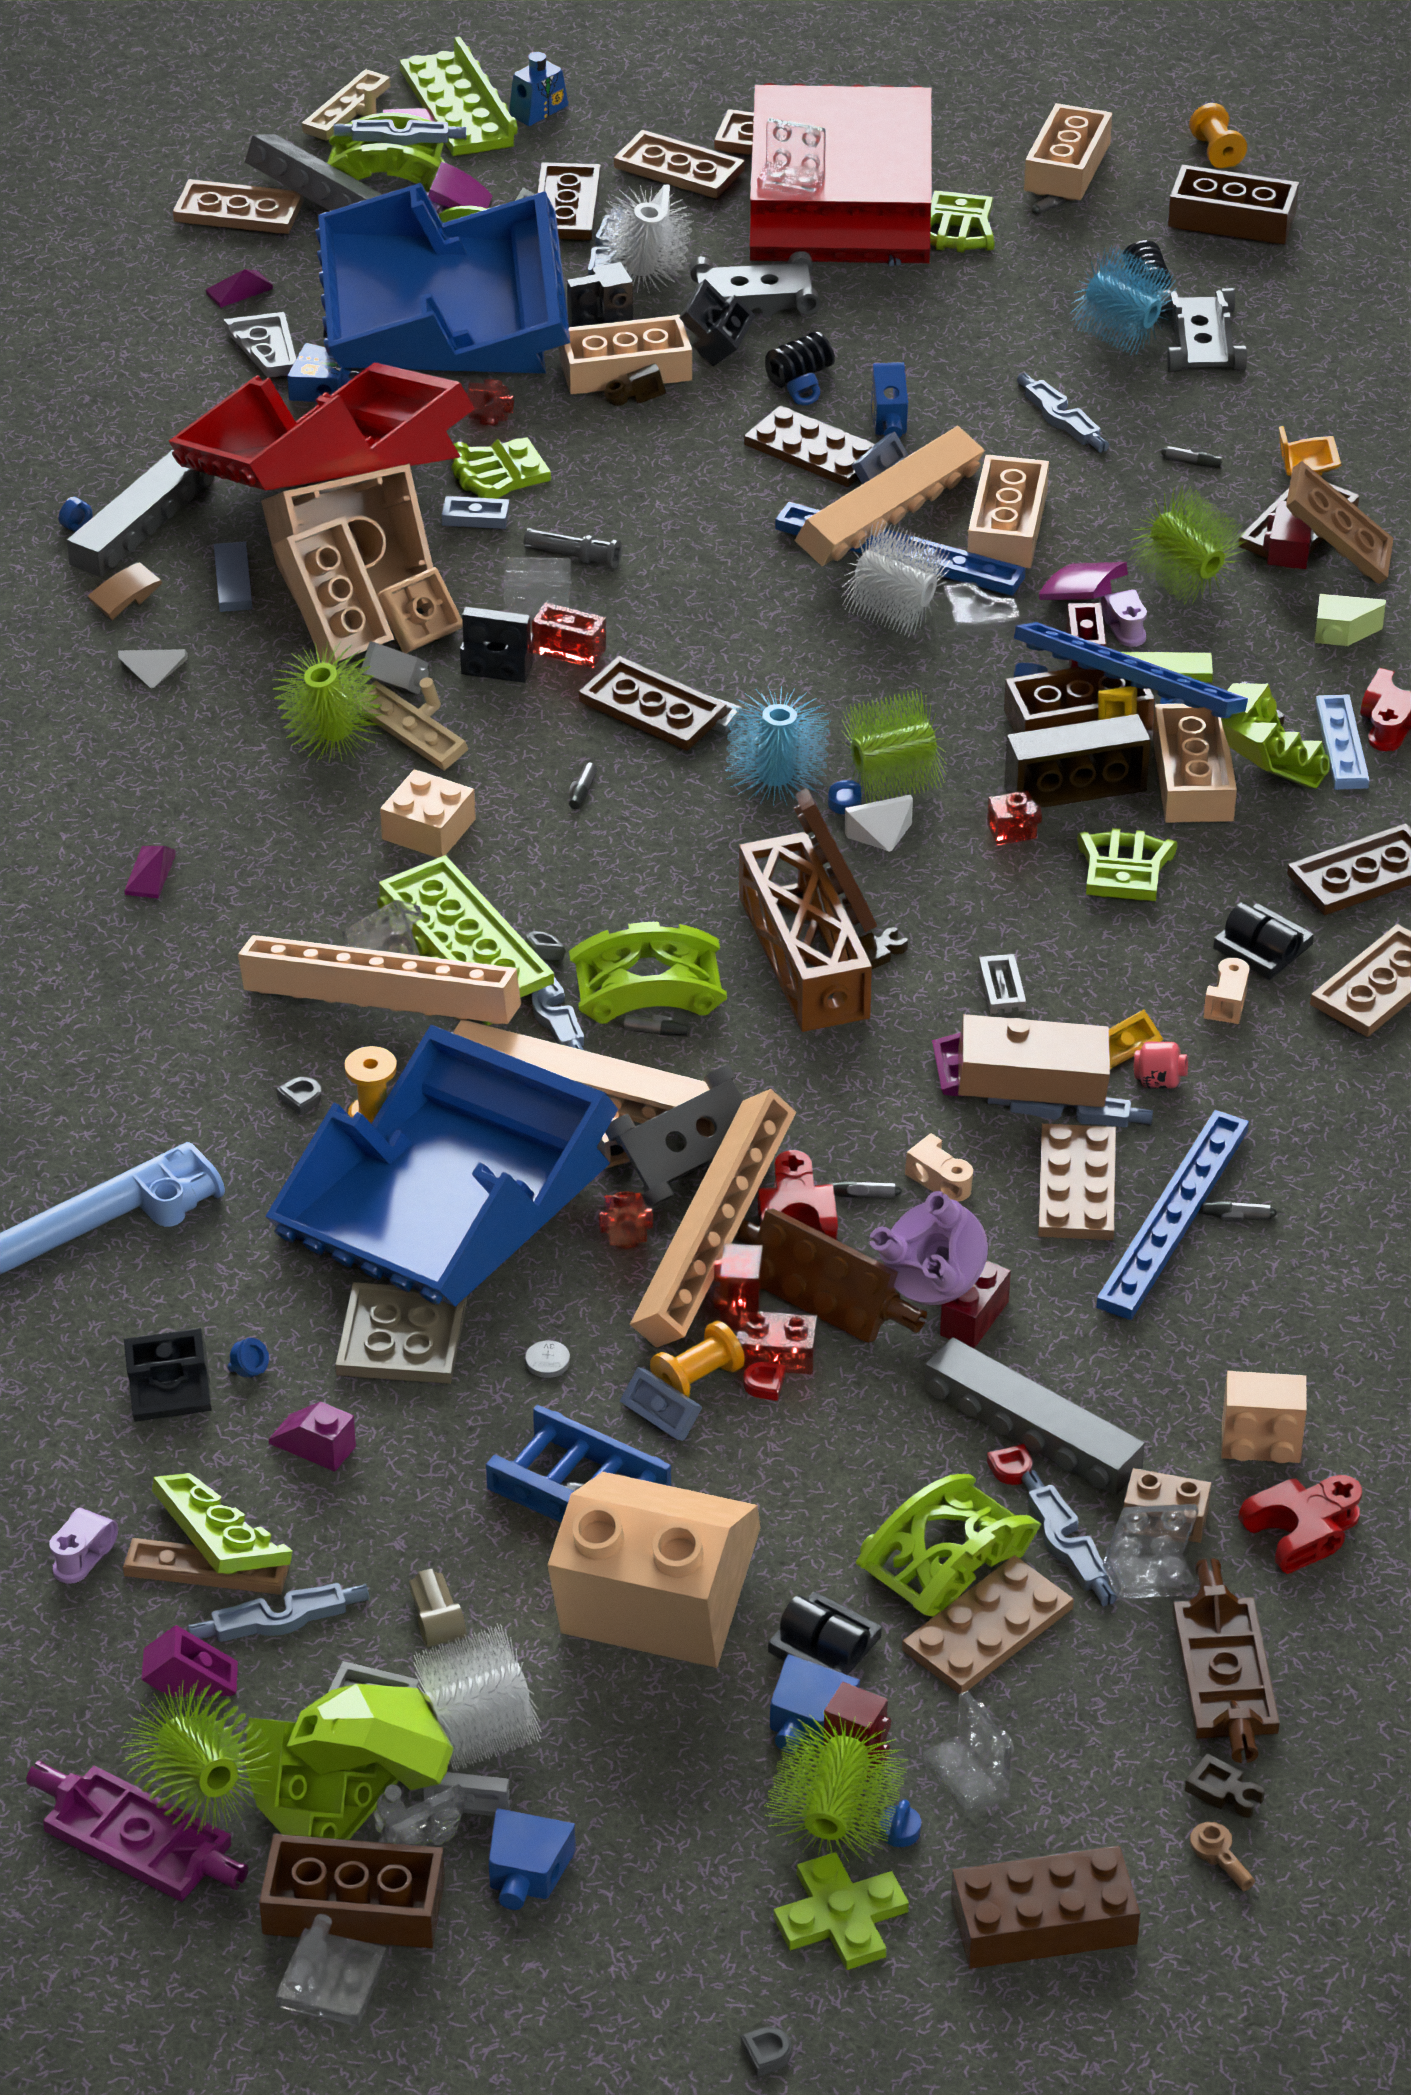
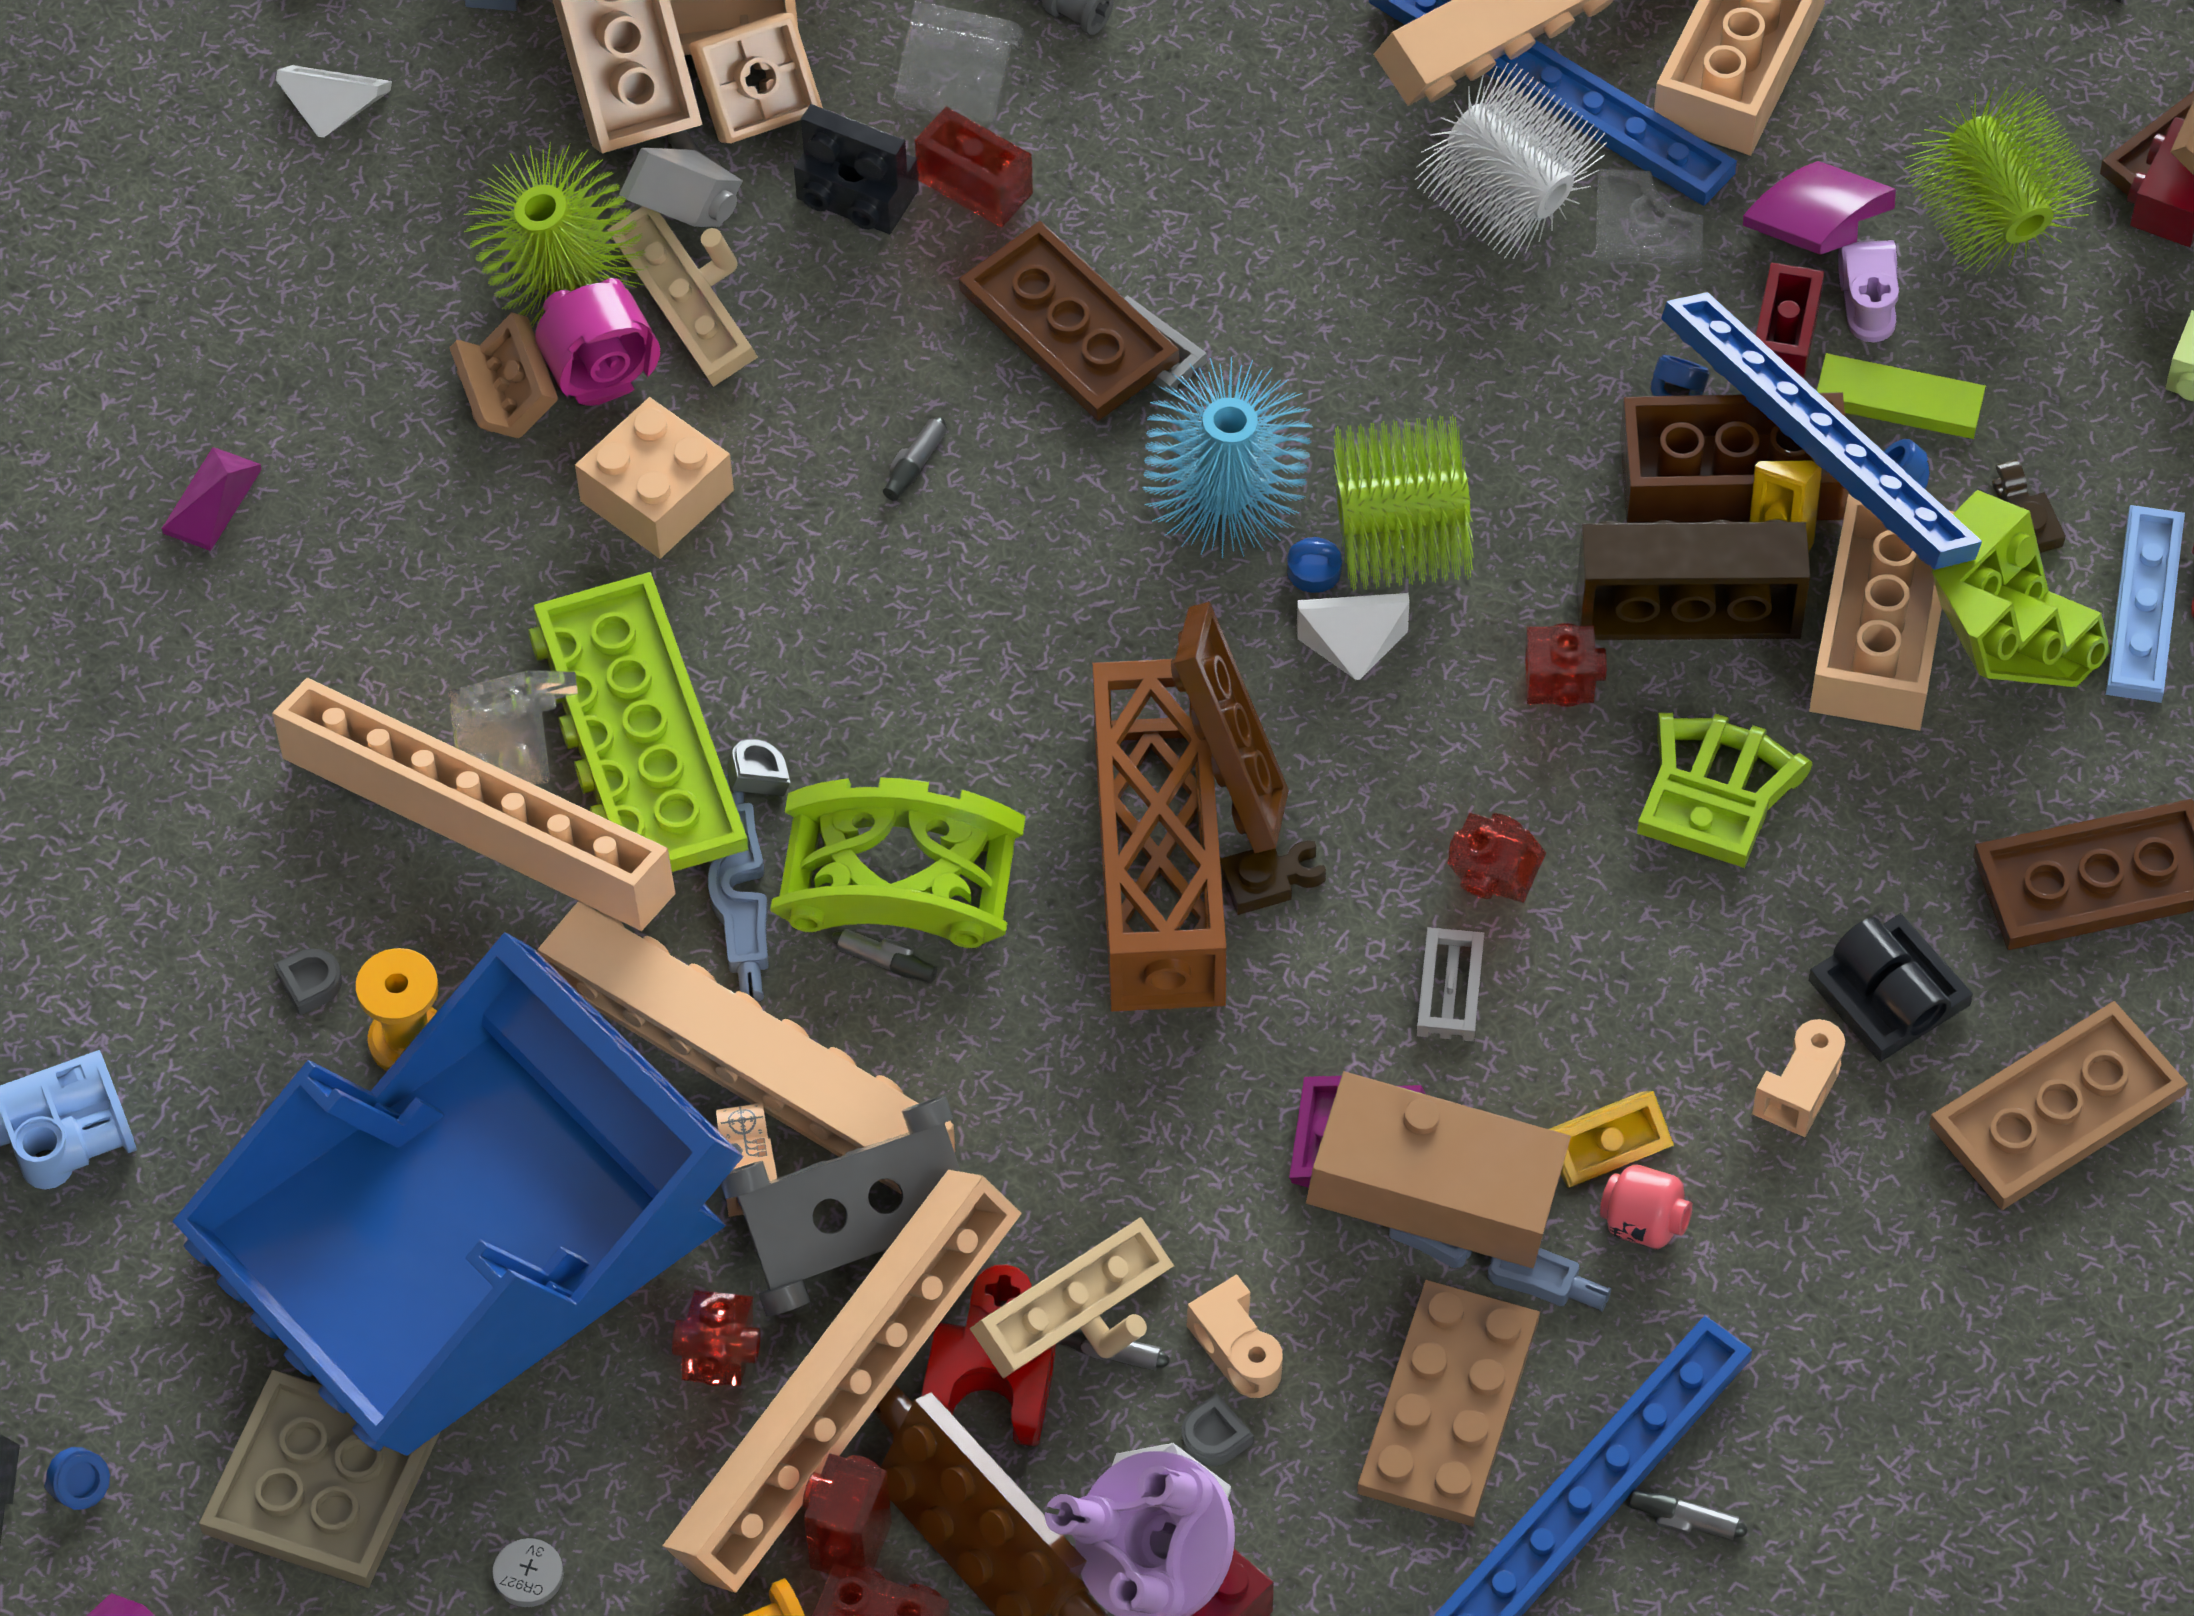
camera: 15 degrees right, 15 degrees up
(317, 780) = (505, 378): none -> medium nougat bracket
(369, 750) = (596, 341): none -> dark pink brick
(841, 1158) = (1075, 1300): none -> tan plate
(1009, 913) = (1495, 857): none -> clear red brick

